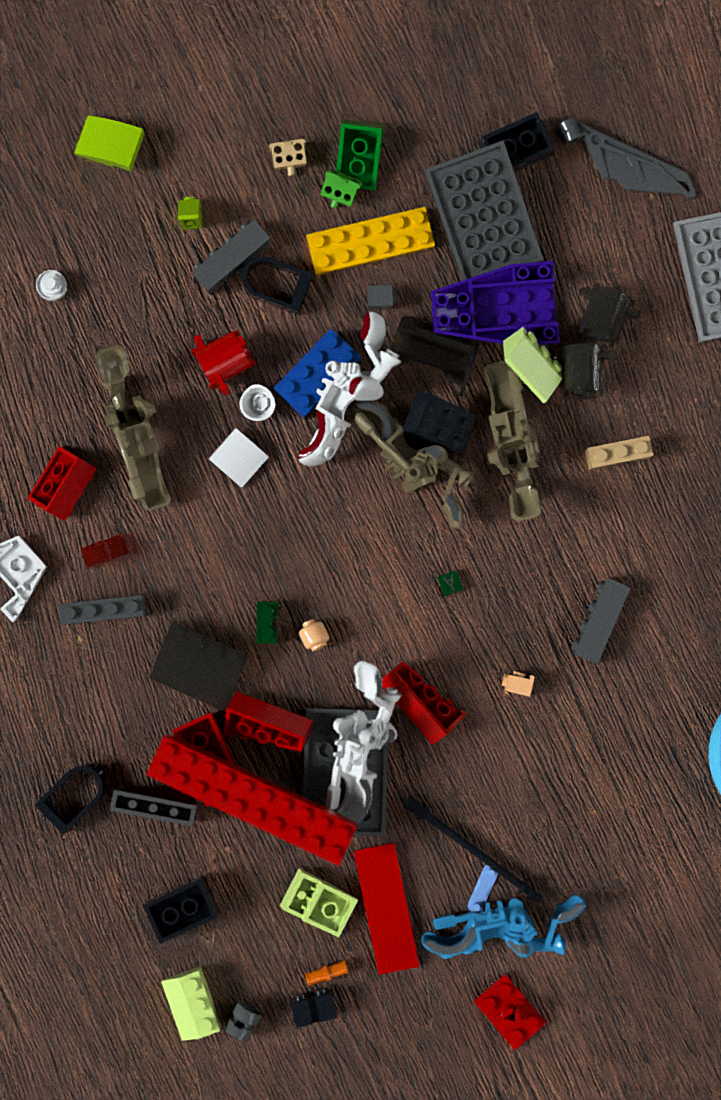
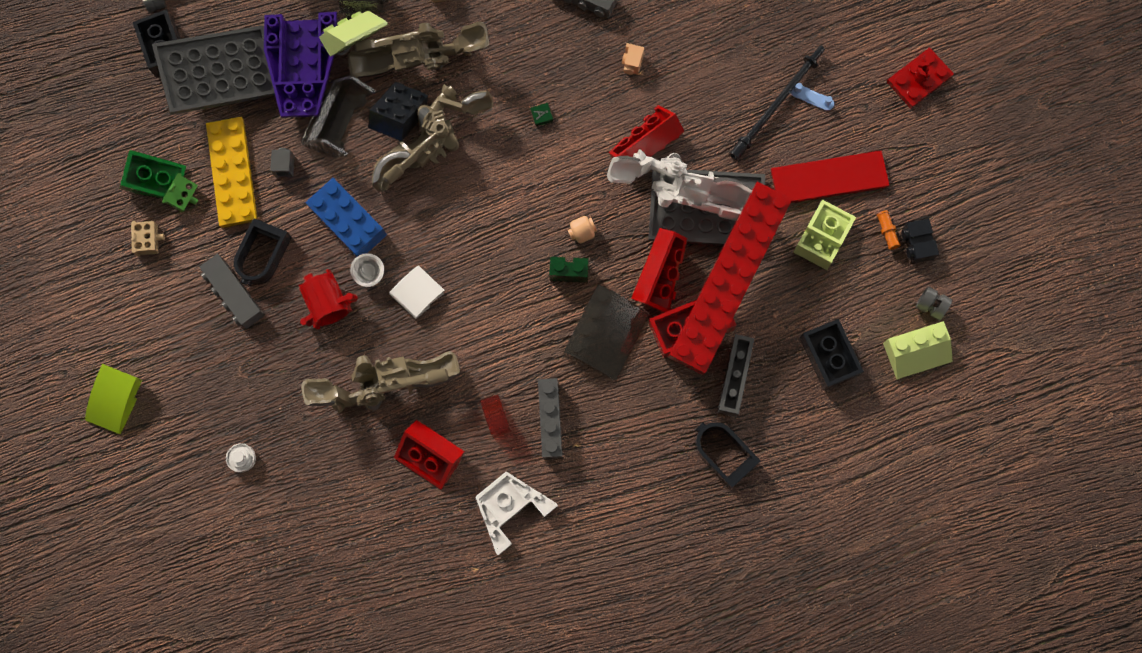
camera: 80 degrees left, 10 degrees down
(190, 213) = (187, 325): lime slope -> none
(348, 386) = (357, 182): white piece -> none
(507, 923) = (842, 72): dark azure piece -> none

